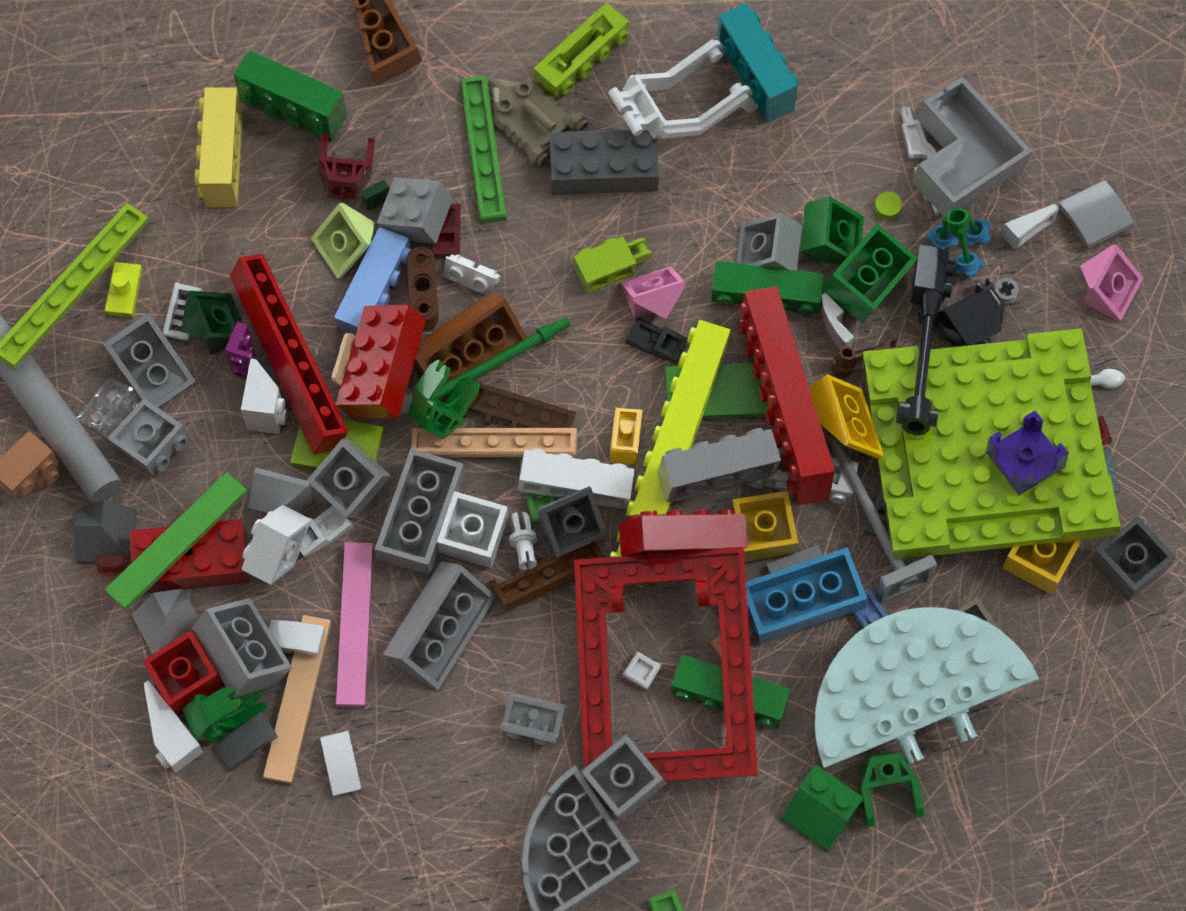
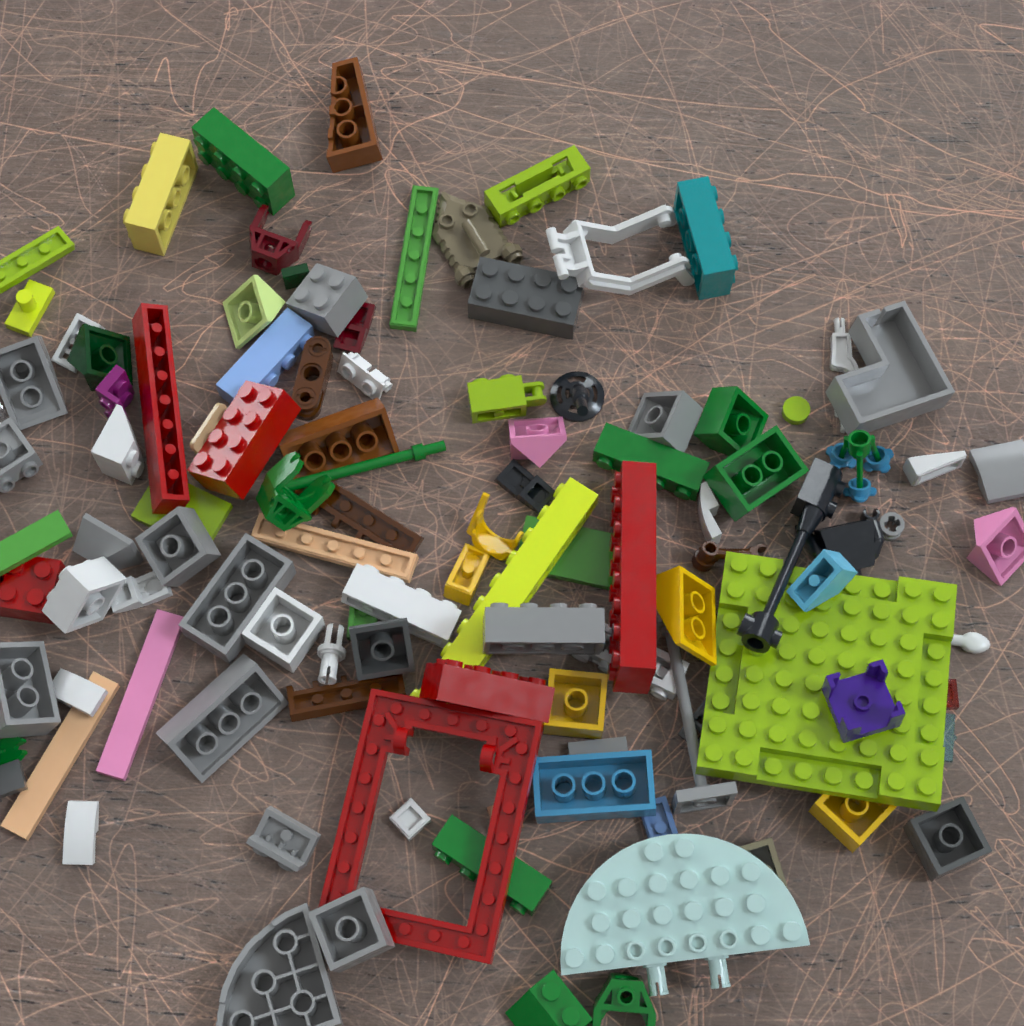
camera: 15 degrees right, 0 degrees up
(635, 399) = (485, 538): none -> yellow helmet
(681, 242) = (577, 397): none -> black dish
(959, 354) = (821, 580): none -> medium azure slope

